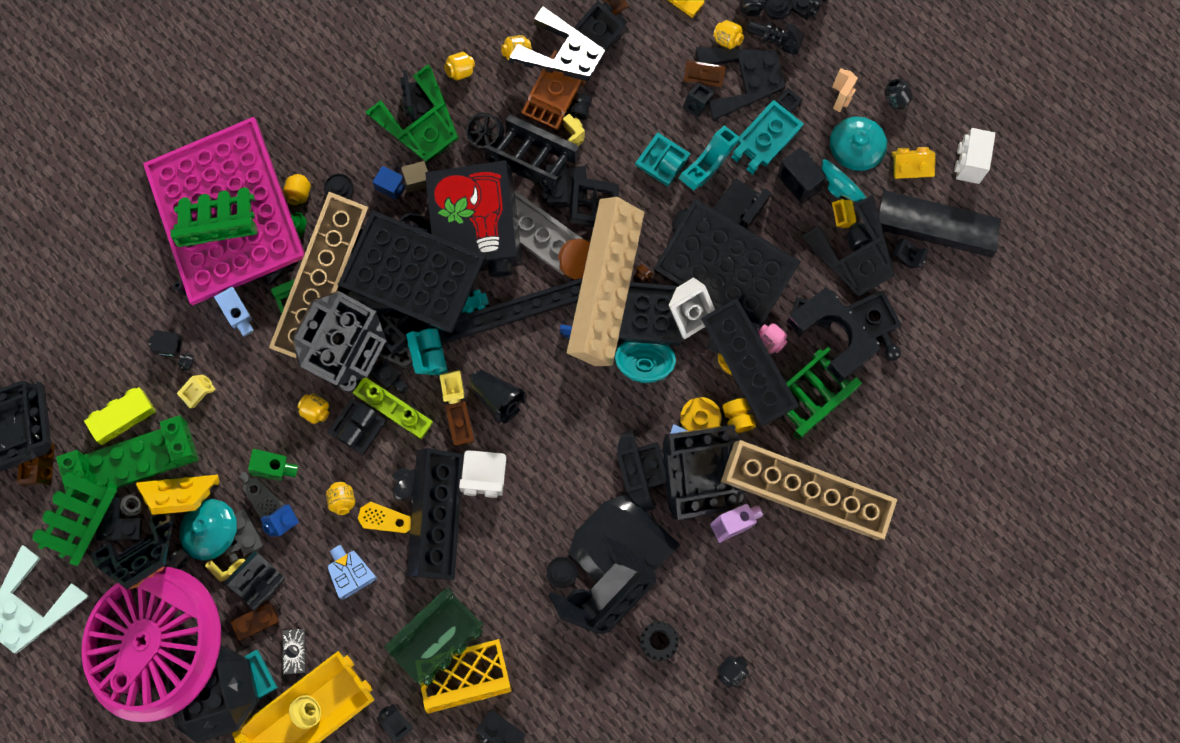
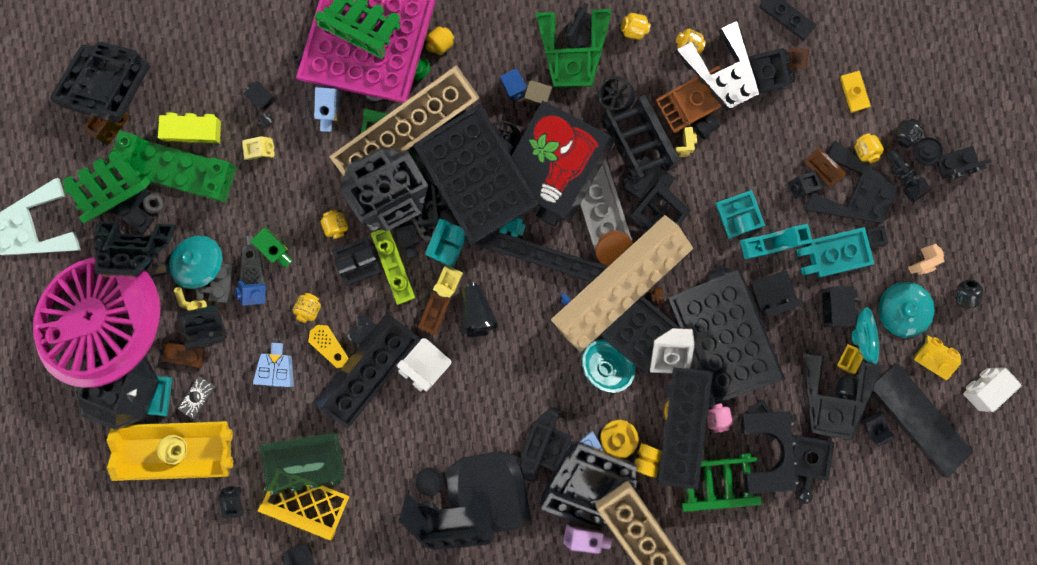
camera: 45 degrees right, 10 degrees up
(176, 494) = (190, 219): yellow wing -> none
(339, 185) = (472, 62): black plate -> none

